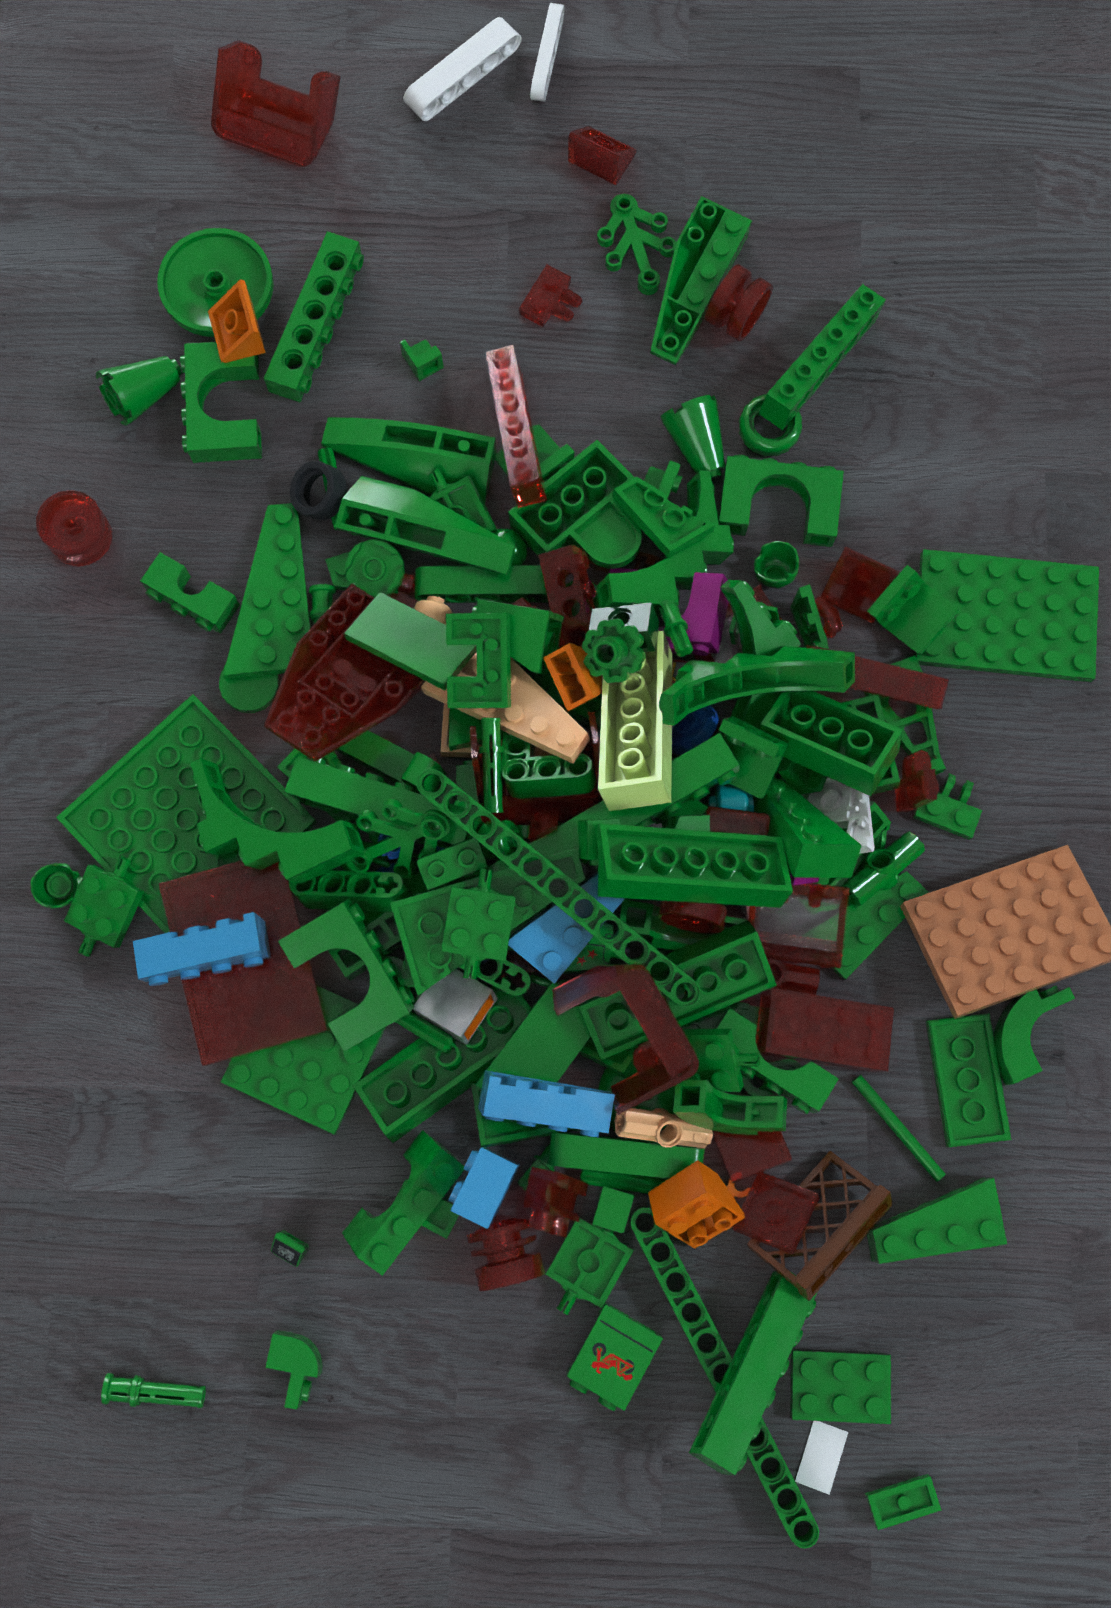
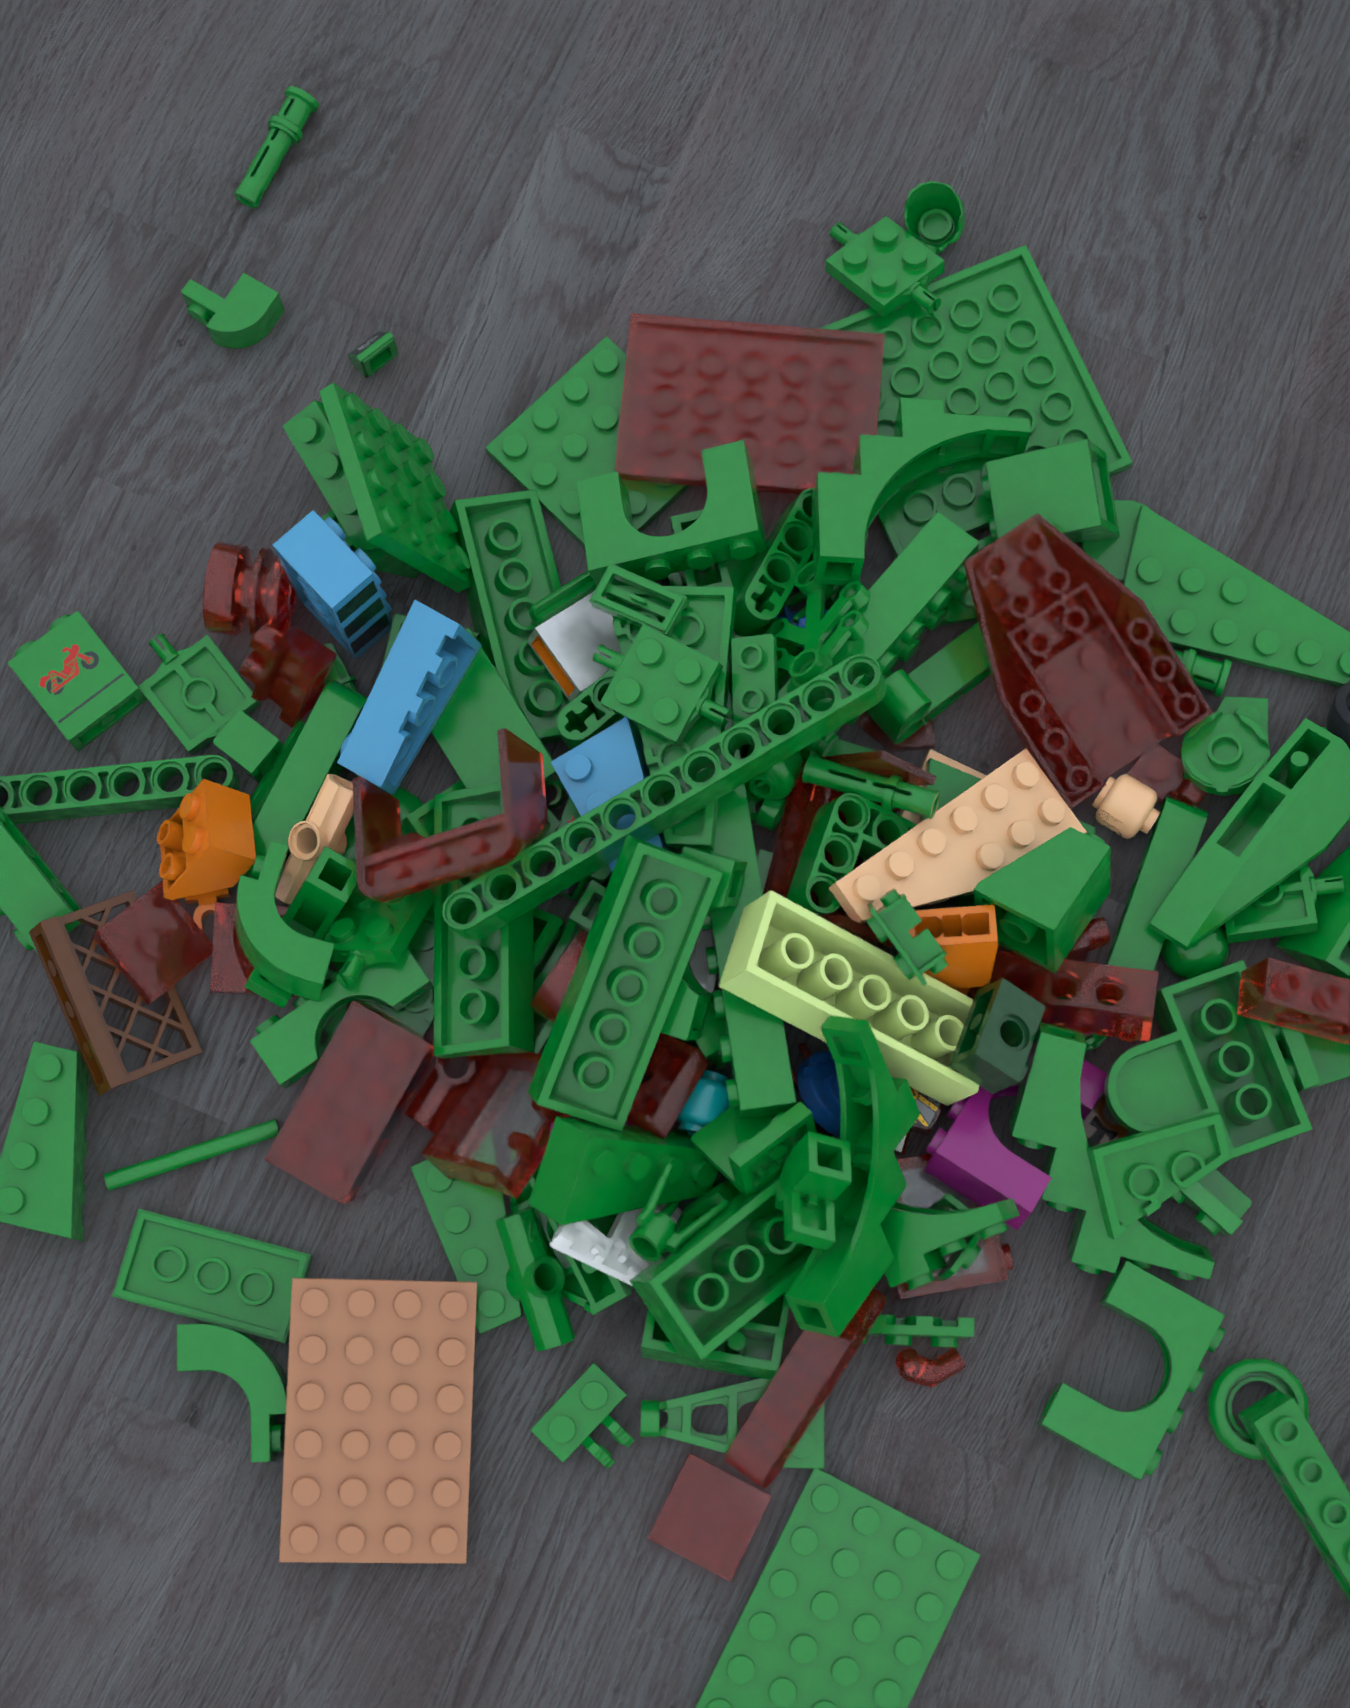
camera: 115 degrees right, 0 degrees up
(202, 950) = (772, 353): dark azure wedge -> none
(210, 607) = (1307, 481): green arch -> none
(238, 733) = (1060, 483): none -> green slope
(399, 1172) = (396, 489): none -> green plate
(407, 991) = (670, 616): none -> green tile
(409, 640) = (1094, 755): green tile -> none
(492, 640) = (1048, 842): green plate -> none
(545, 822) = (770, 831): clear red bracket -> none
(582, 709) = (915, 953): none -> green hinge
(626, 647) = (966, 1000): green plant -> none
(675, 627) = (975, 1112): green axle -> none
(698, 434) = (1272, 1288): green cone -> none
(750, 1127) = (272, 947): none -> green arch
(770, 705) = (809, 1184): none -> green brick
(776, 564) = (1031, 1320): green hair -> none
(835, 790) = (657, 1230): none -> green plant
(857, 583) = (956, 1428): clear red slope -> none
(913, 610) = (888, 1488): green bracket -> none
(918, 783) = (628, 1373): clear red hinge -> none
(973, 712) = (709, 1517): none -> clear red tile

